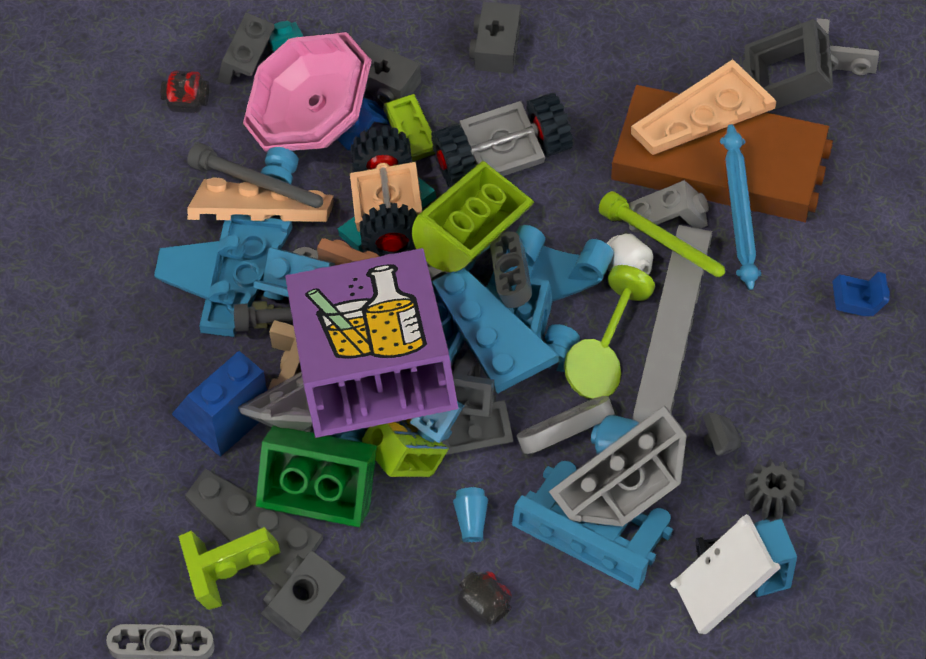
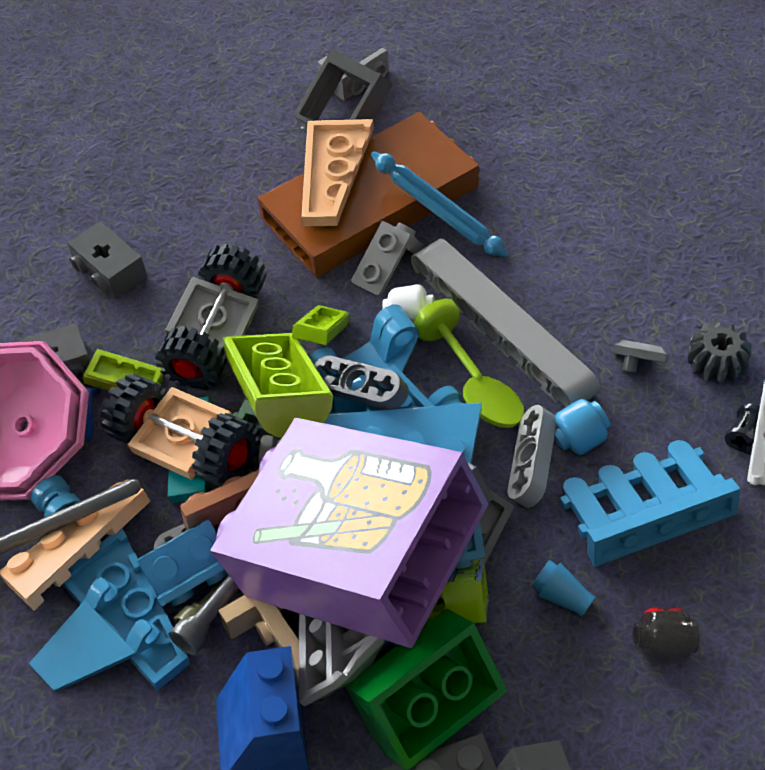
camera: 50 degrees left, 5 degrees down
(559, 213) = (321, 325): none -> lime plate
(616, 208) = (352, 287): lime piece -> none
(626, 474) = (636, 430): light grey wedge -> none
(860, 295) = (584, 189): blue bracket -> none

